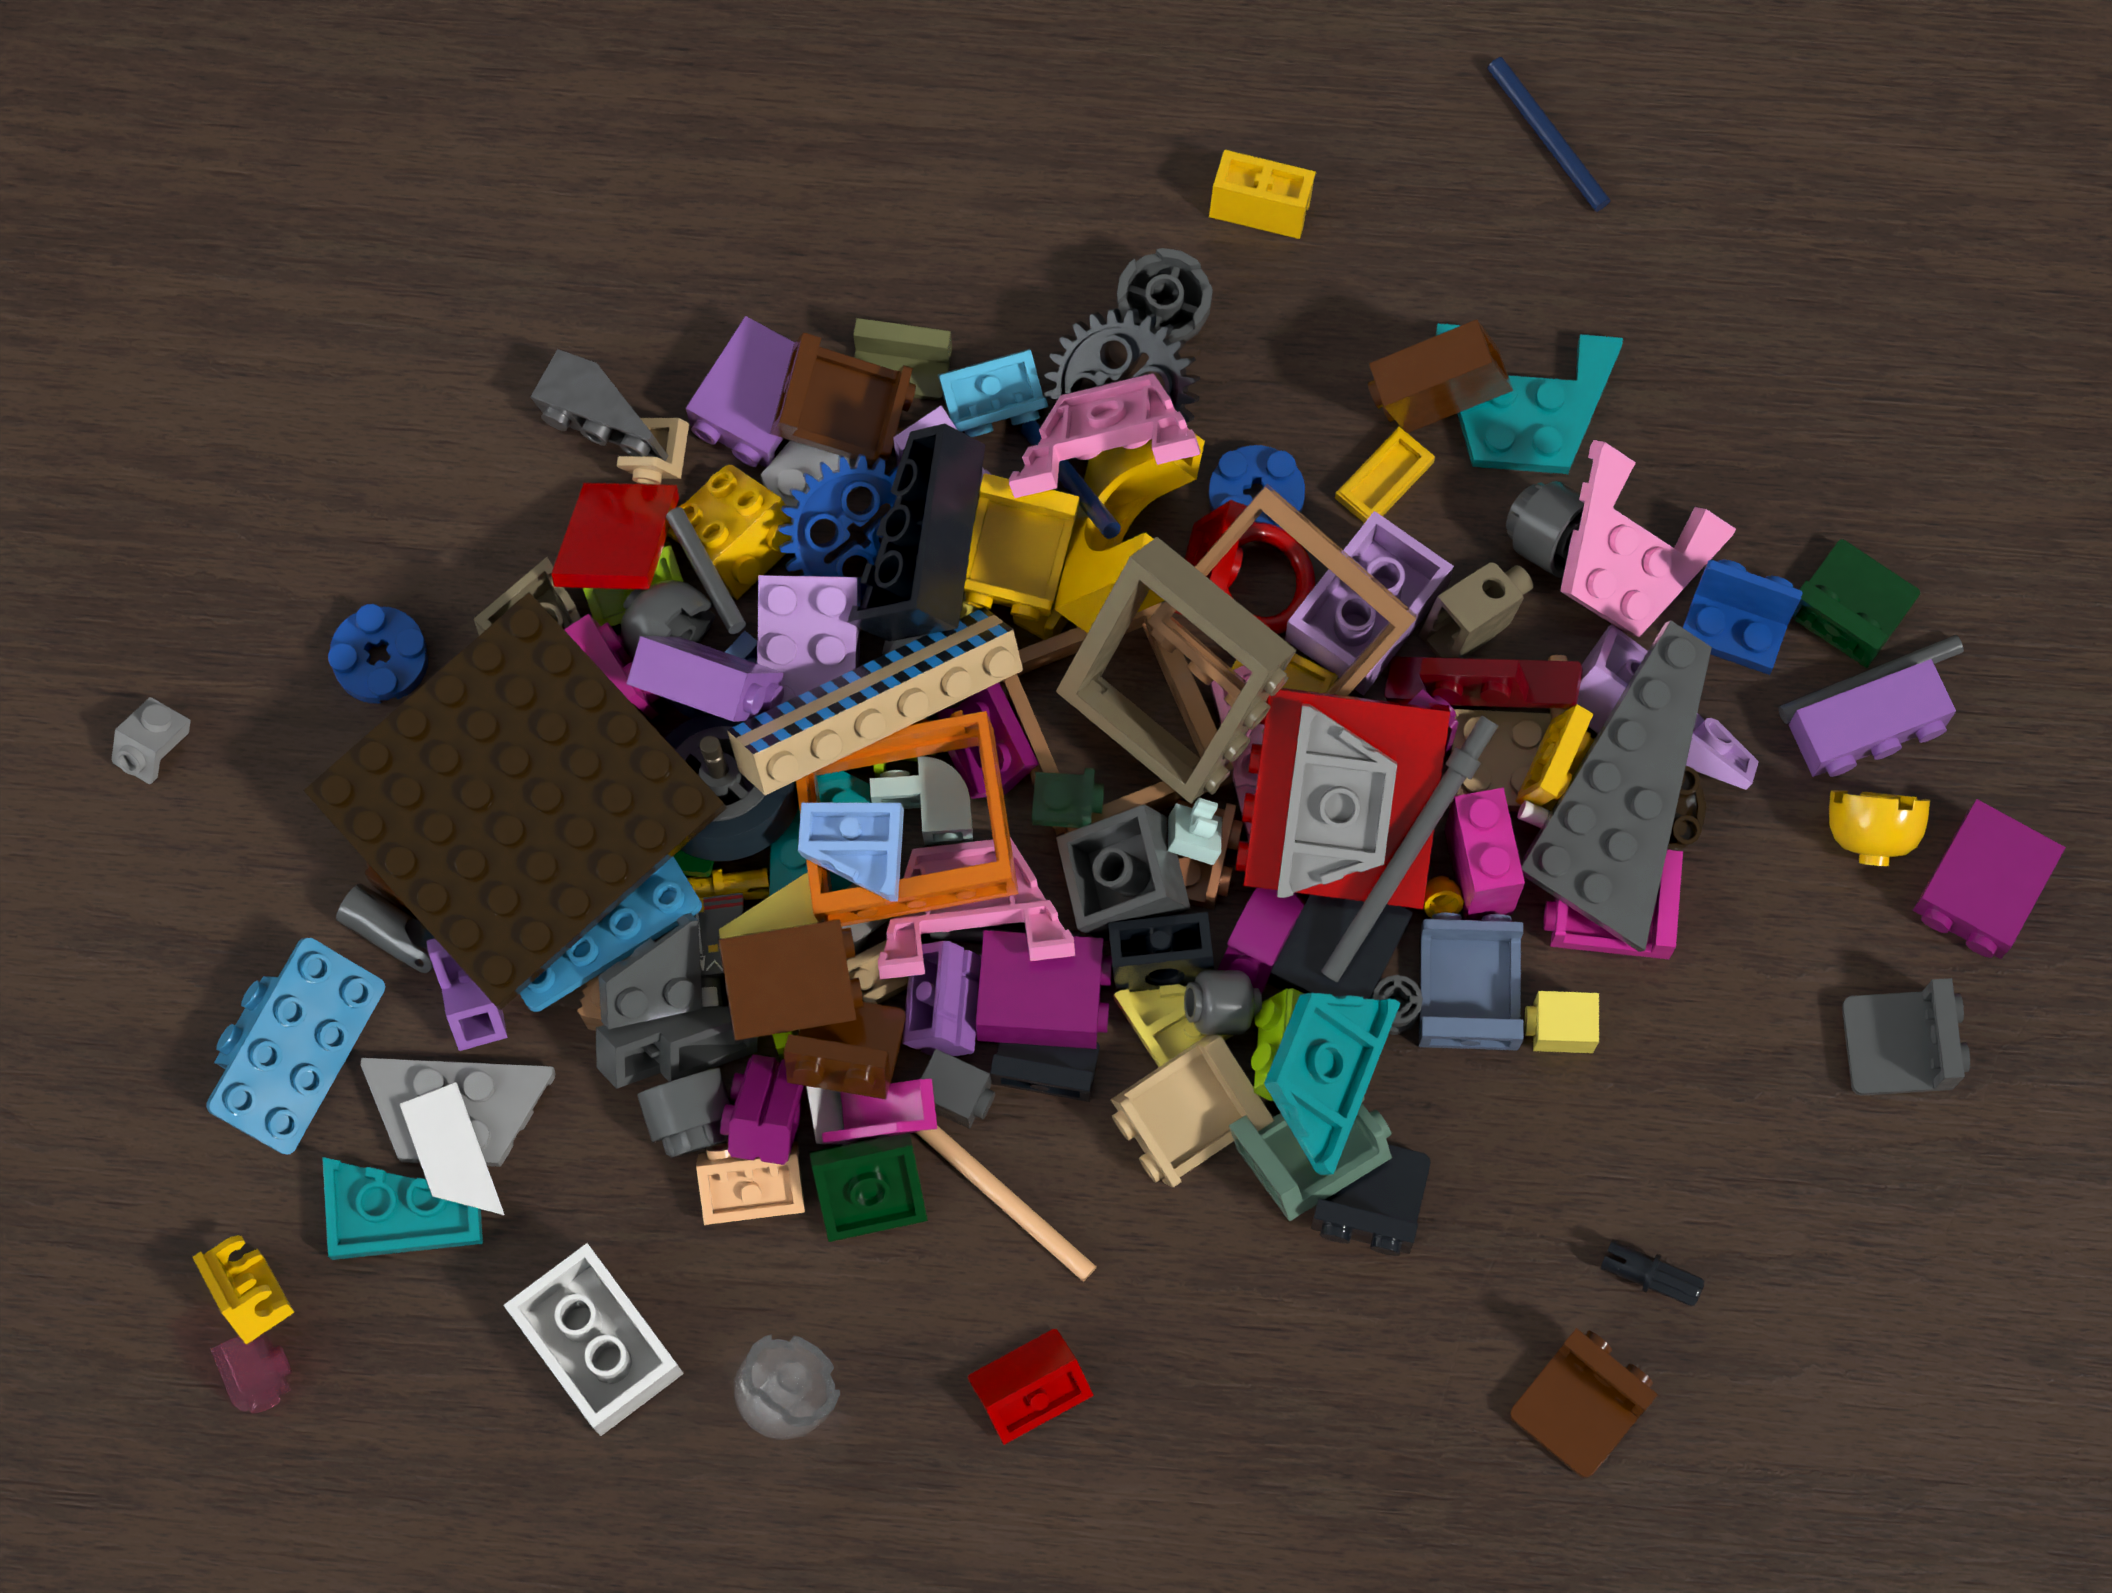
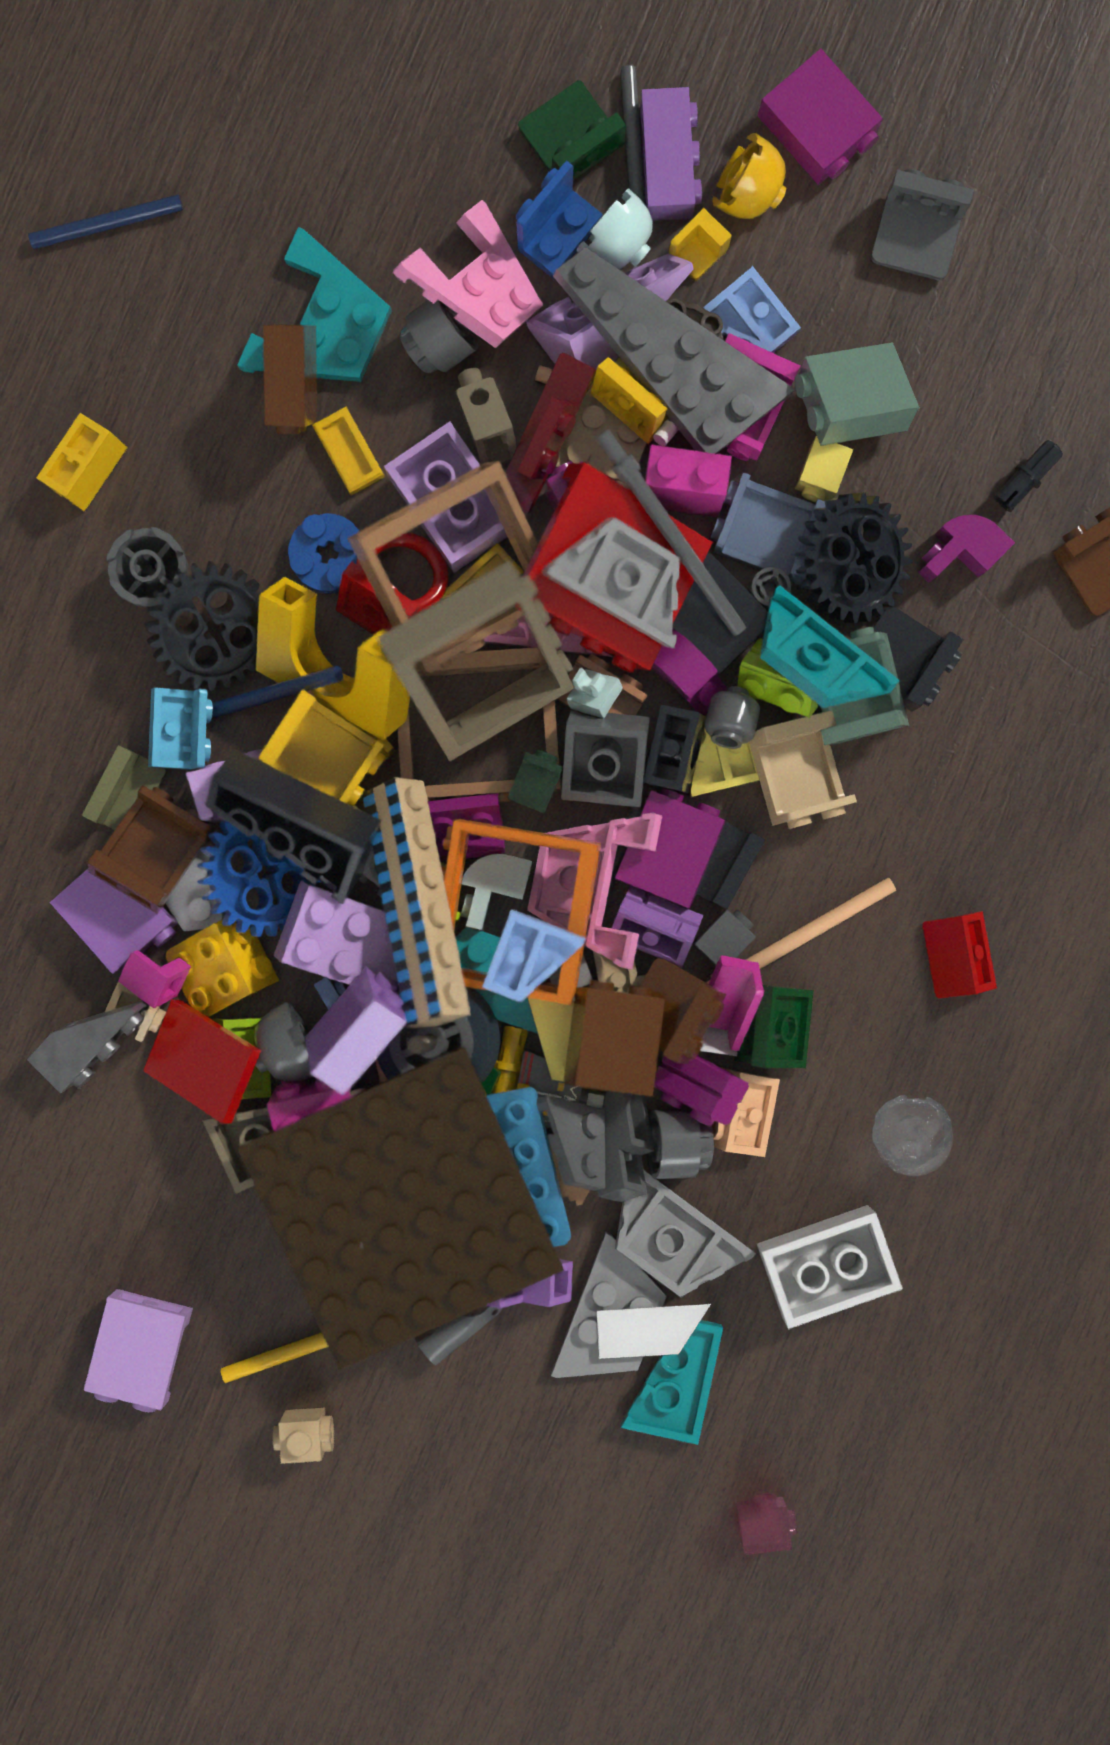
camera: 75 degrees left, 15 degrees up
(147, 738) = (240, 1469): light grey bracket -> none
(209, 793) = (304, 1435): none -> tan brick
(243, 1289) = (706, 1517): yellow hinge -> none
(255, 576) = (136, 1350): none -> lavender panel
(285, 729) = (273, 1357): none -> yellow bar
(291, 1044) = (524, 1427): dark azure bracket -> none
(371, 628) = (225, 1293): blue plate -> none
(570, 1148) = (675, 1240): none -> light grey wing
(689, 456) = (151, 982): none -> dark pink panel
(706, 570) = (256, 1000): dark grey bar -> none
(1100, 420) = (243, 649): bright pink wing -> none
(1442, 896) = (699, 522): yellow hinge -> none
(1502, 1115) = (854, 557): none -> black gear
(1546, 1222) = (971, 539): none -> magenta brick
(1666, 1022) = (856, 393): none -> sand green brick
(1722, 879) = (754, 313): none -> light blue wing
(1750, 689) = (622, 232): none -> light aqua cylinder
(1779, 790) = (701, 243): none -> yellow panel

